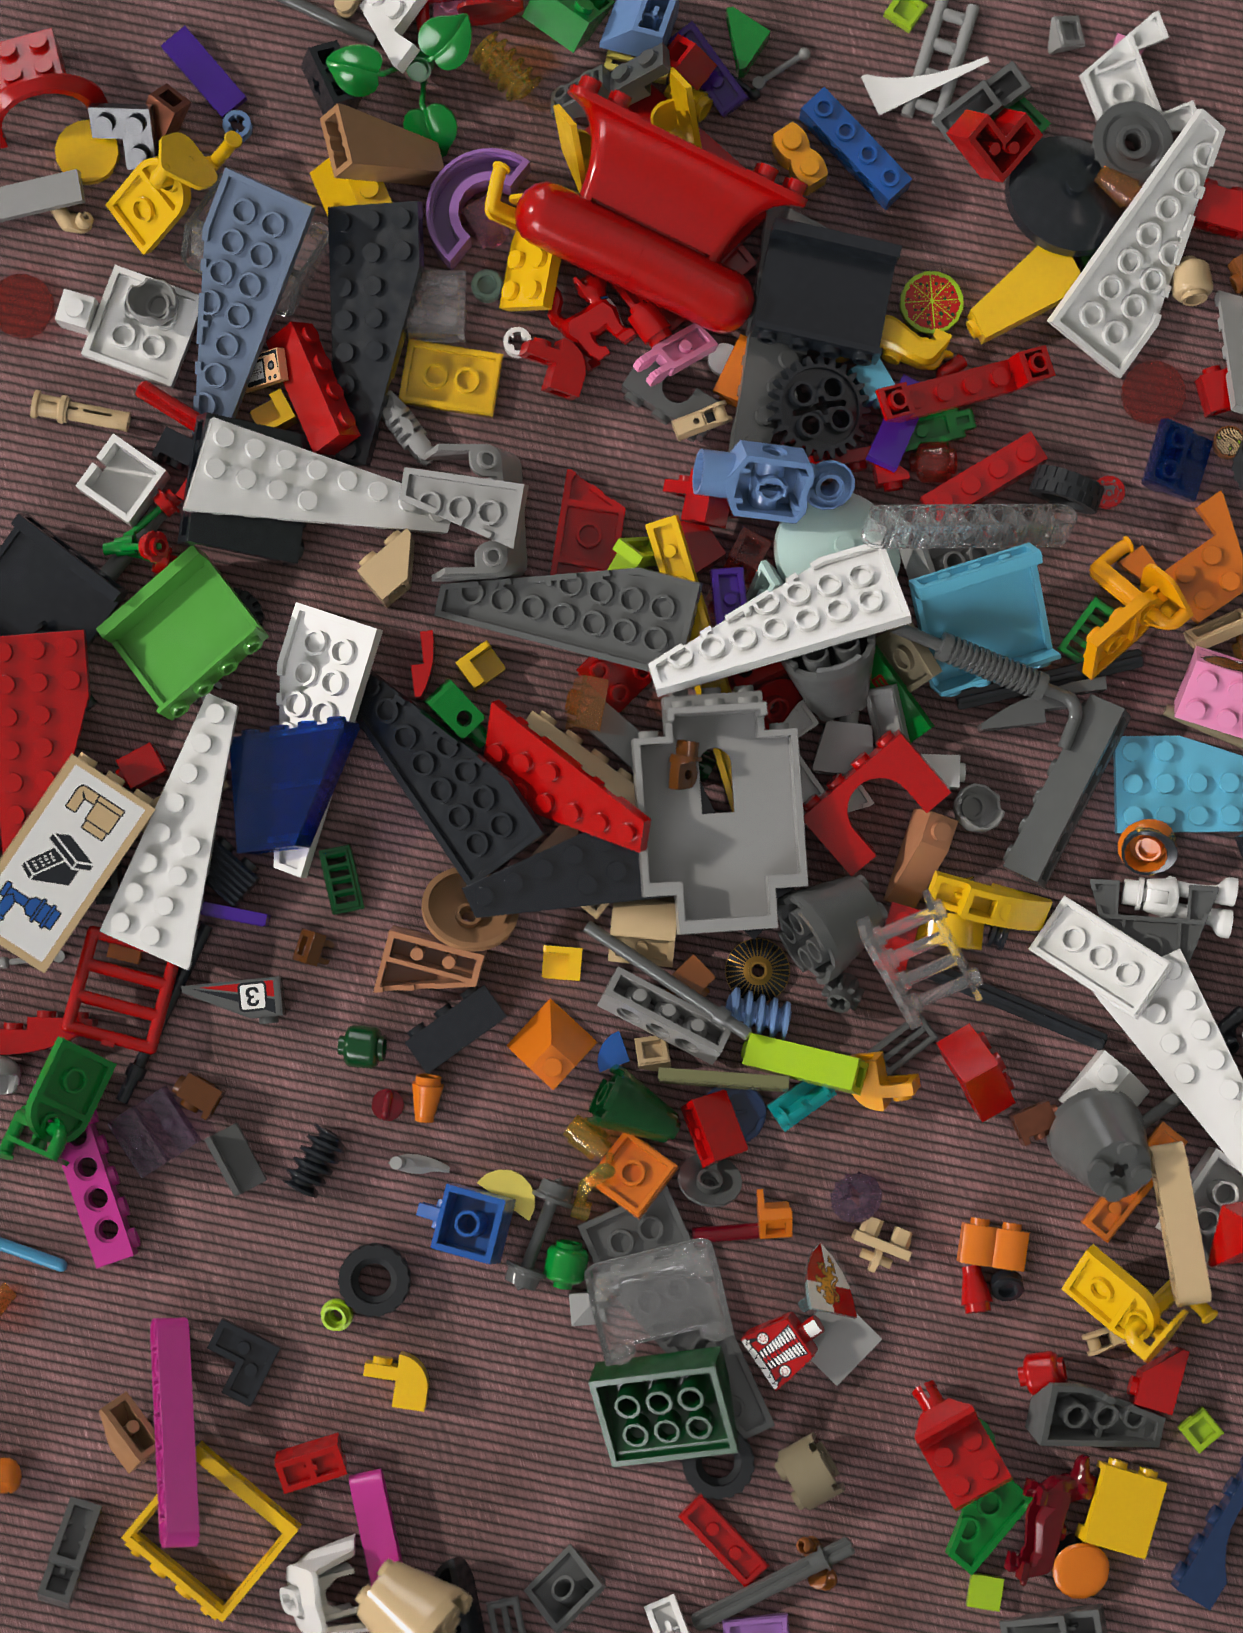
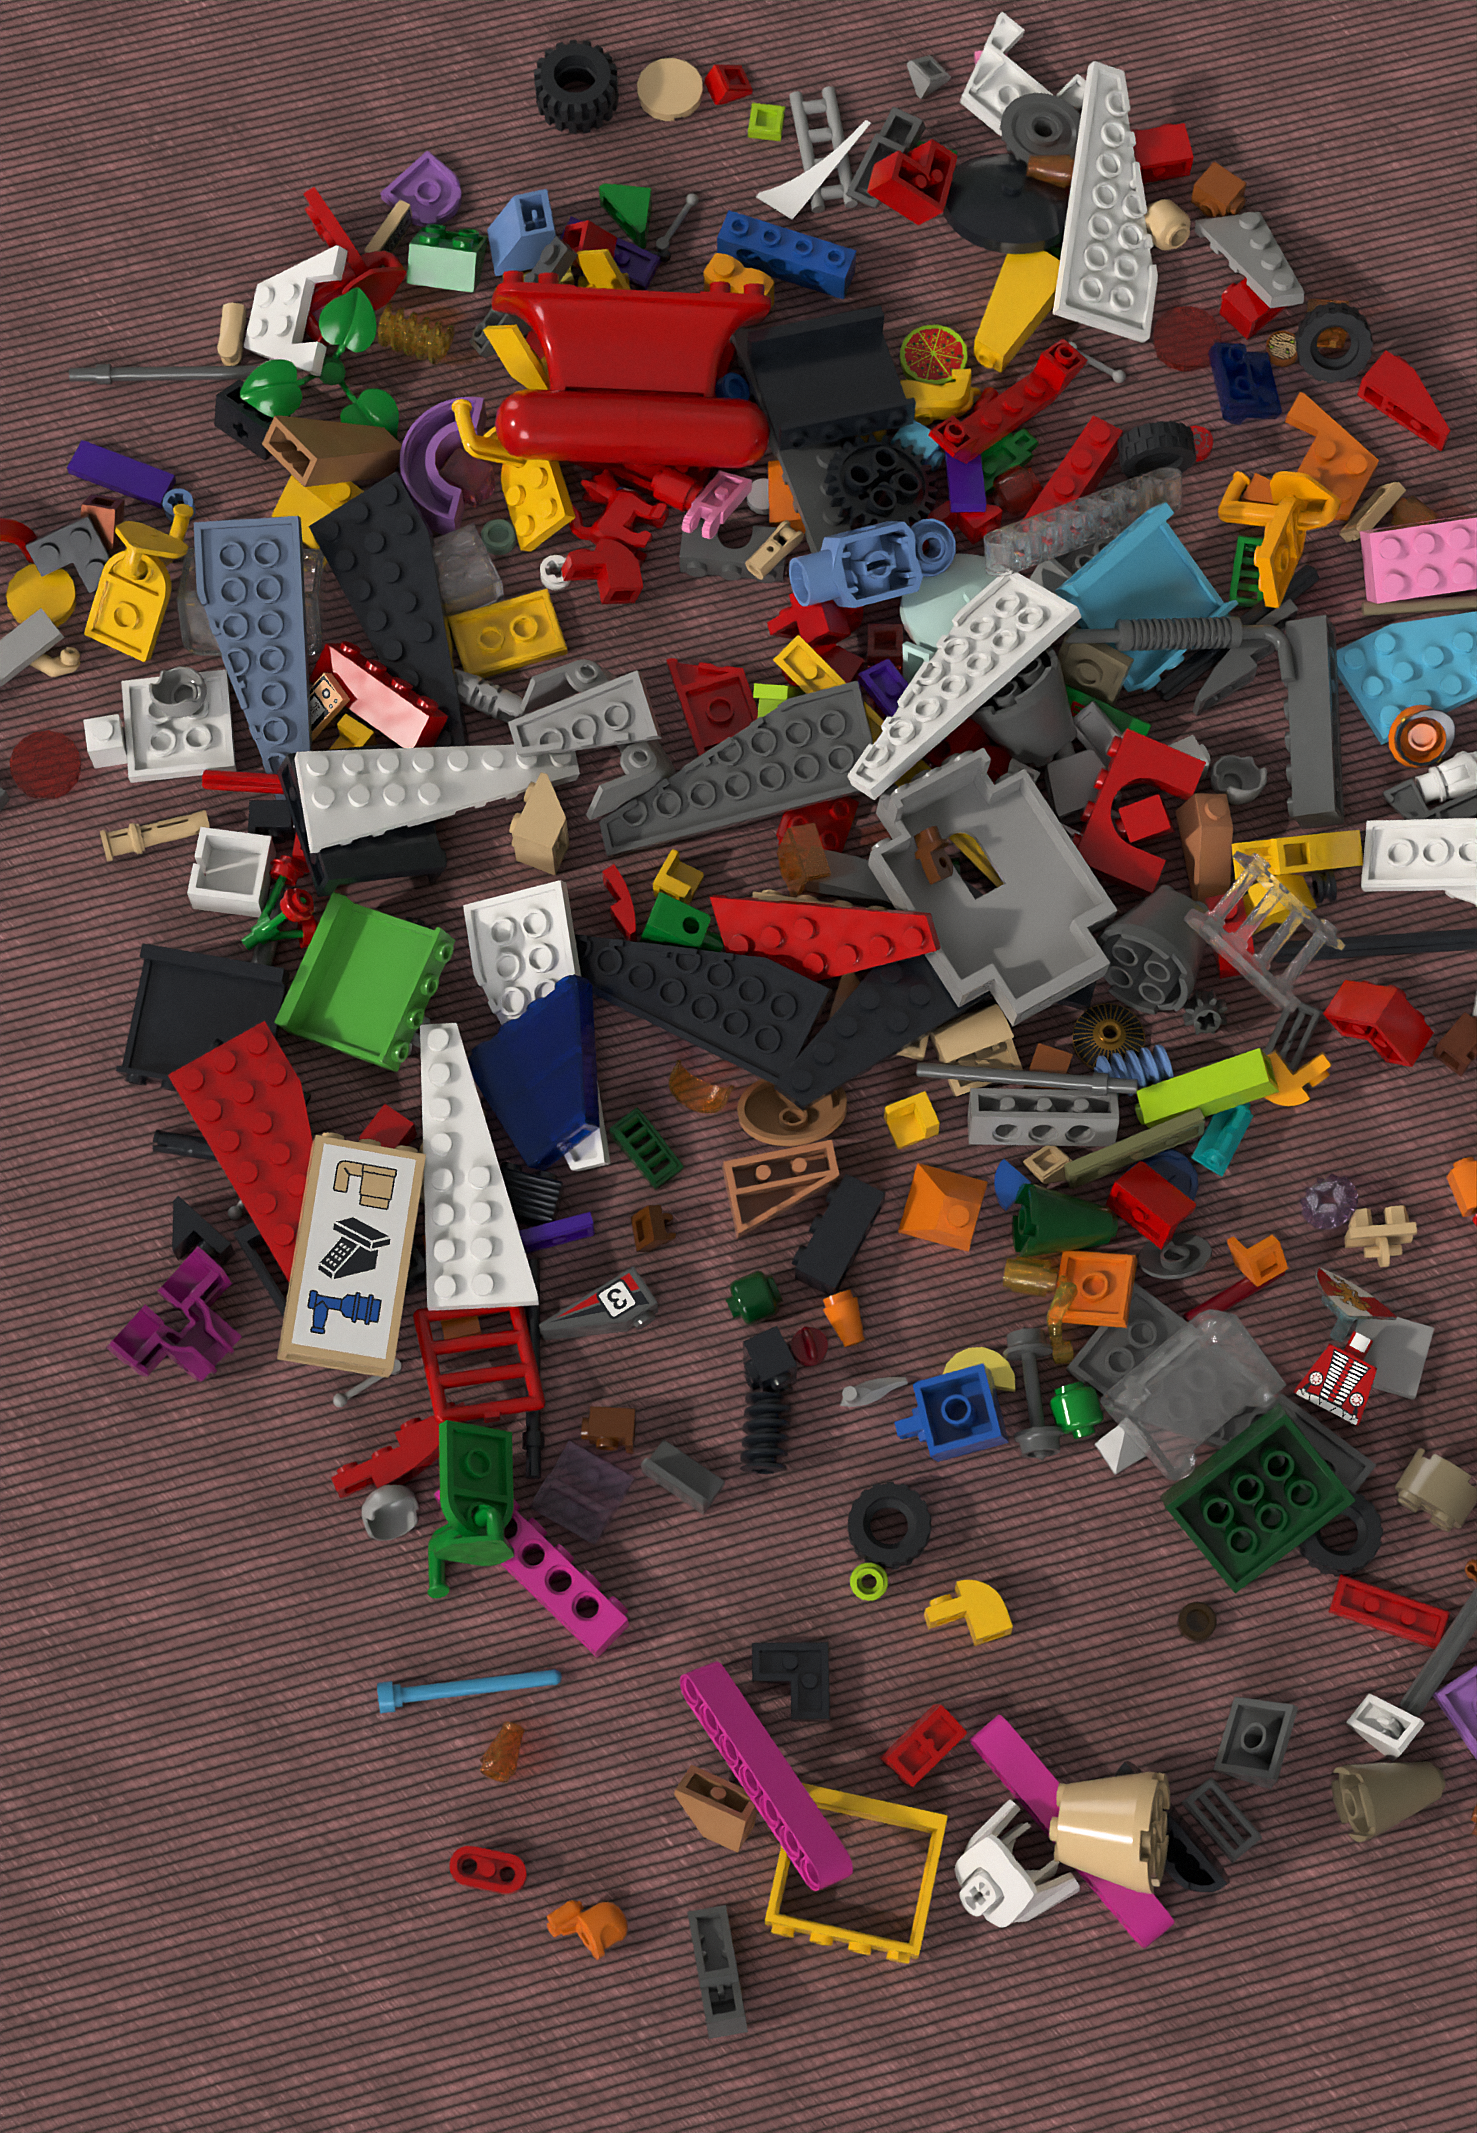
camera: 20 degrees left, 15 degrees down
(343, 1110) = (769, 1363): none -> black brick
(407, 852) = (696, 1093): none -> clear orange helmet
(572, 1472) = (1196, 1621): none -> dark brown tile
(742, 256) = (732, 386): none -> blue tile
(880, 810) = (1144, 820): none -> red slope
(1077, 398) = (1118, 376): none -> light grey hinge

